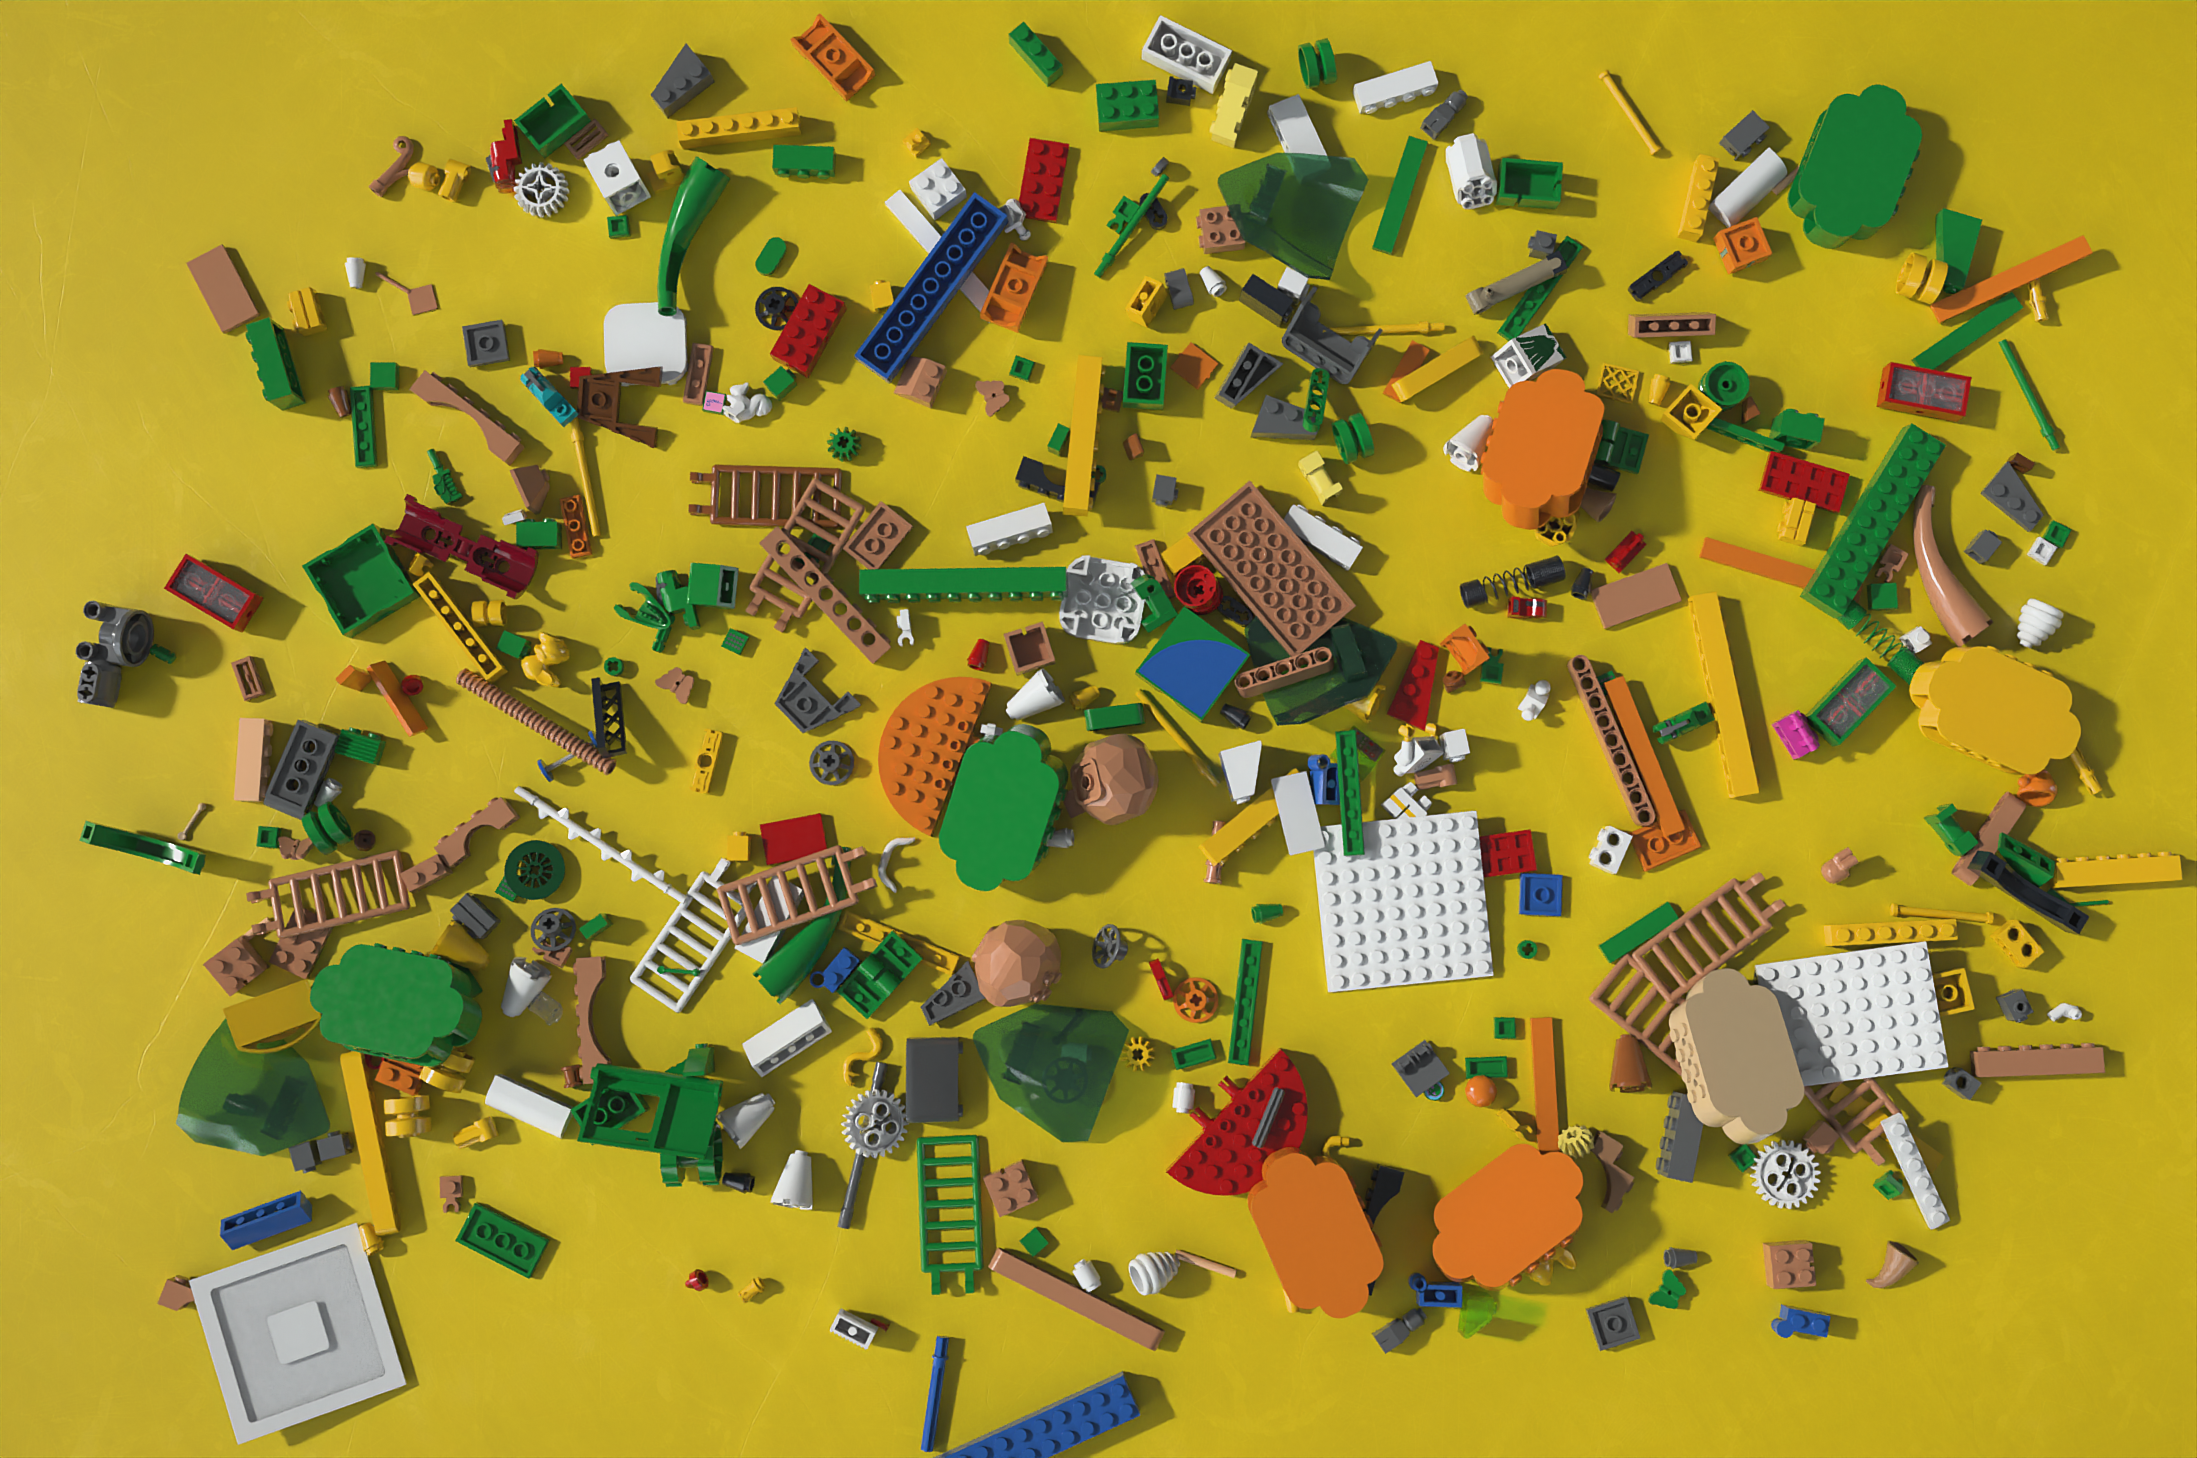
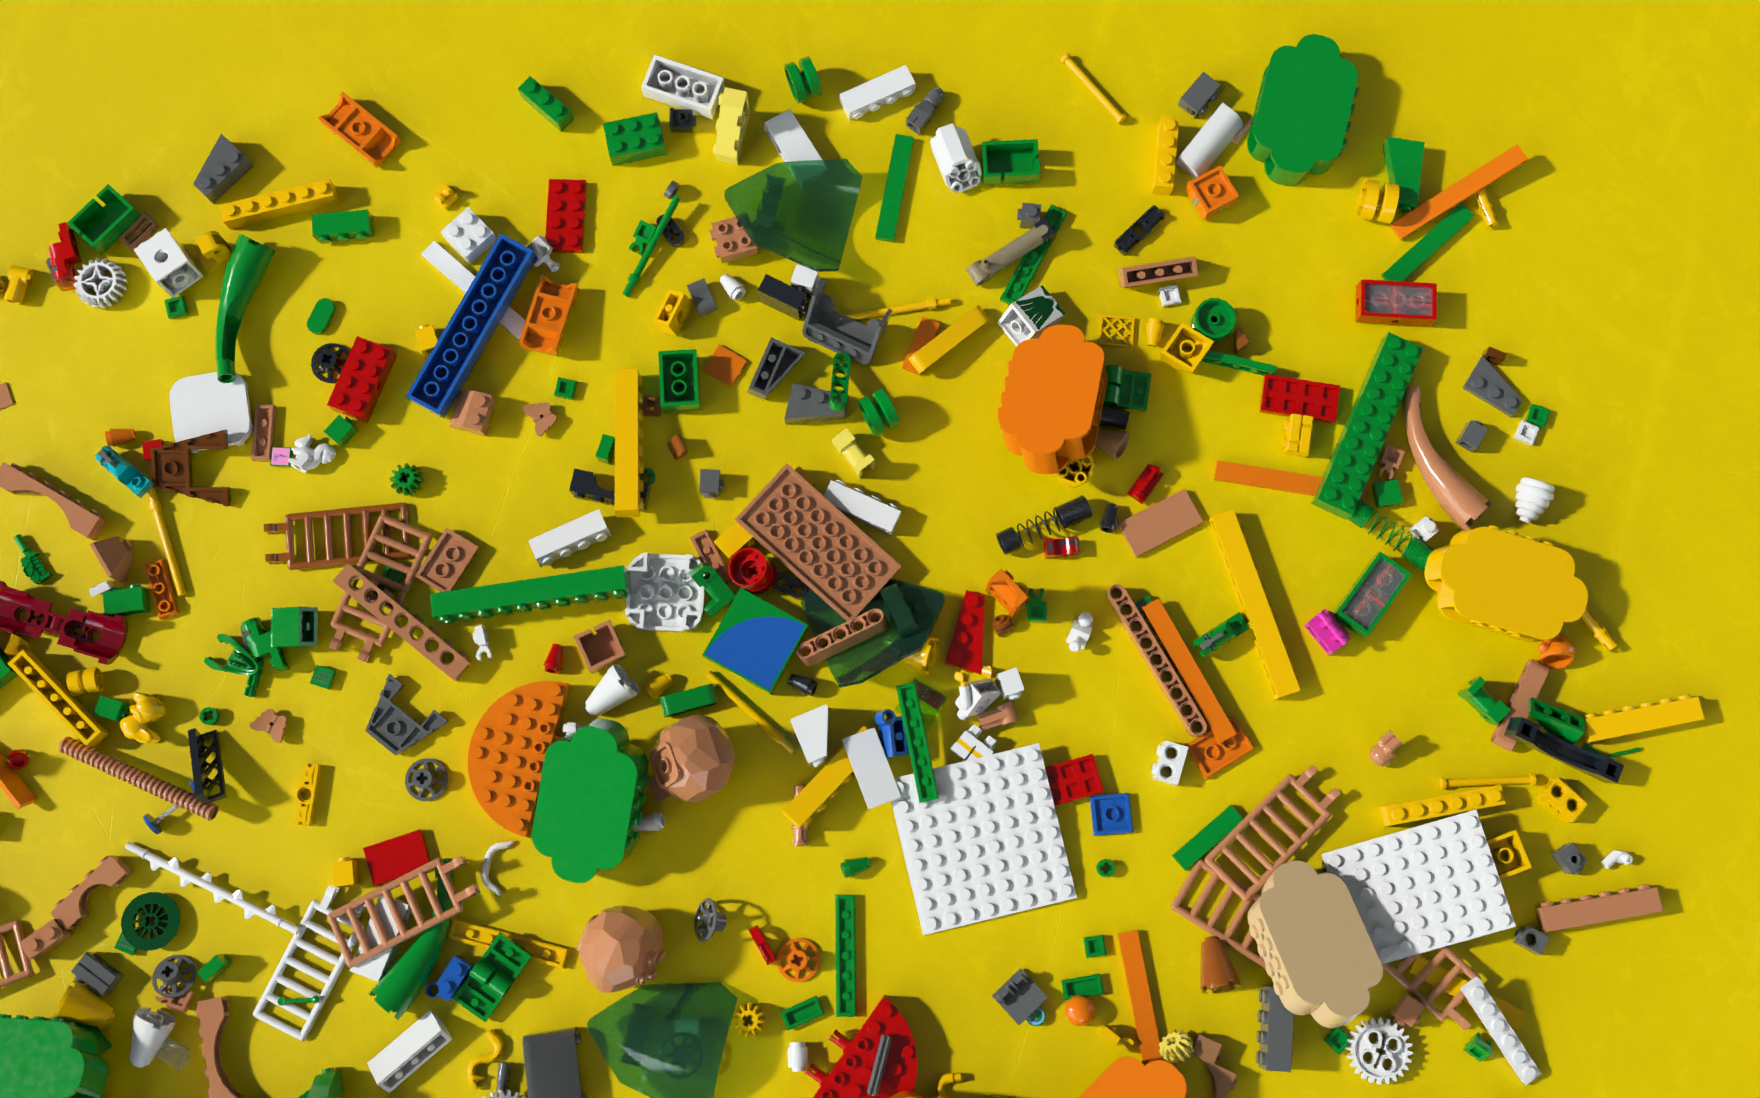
camera: 10 degrees left, 5 degrees down
(486, 343) = (61, 430): dark grey plate -> none
(954, 996) = (565, 989): dark grey wing -> none
(1470, 443) = (986, 402): white cone -> none
(1797, 429) = (1285, 351): green brick -> none
(2046, 429) = (1513, 323): green bar -> none

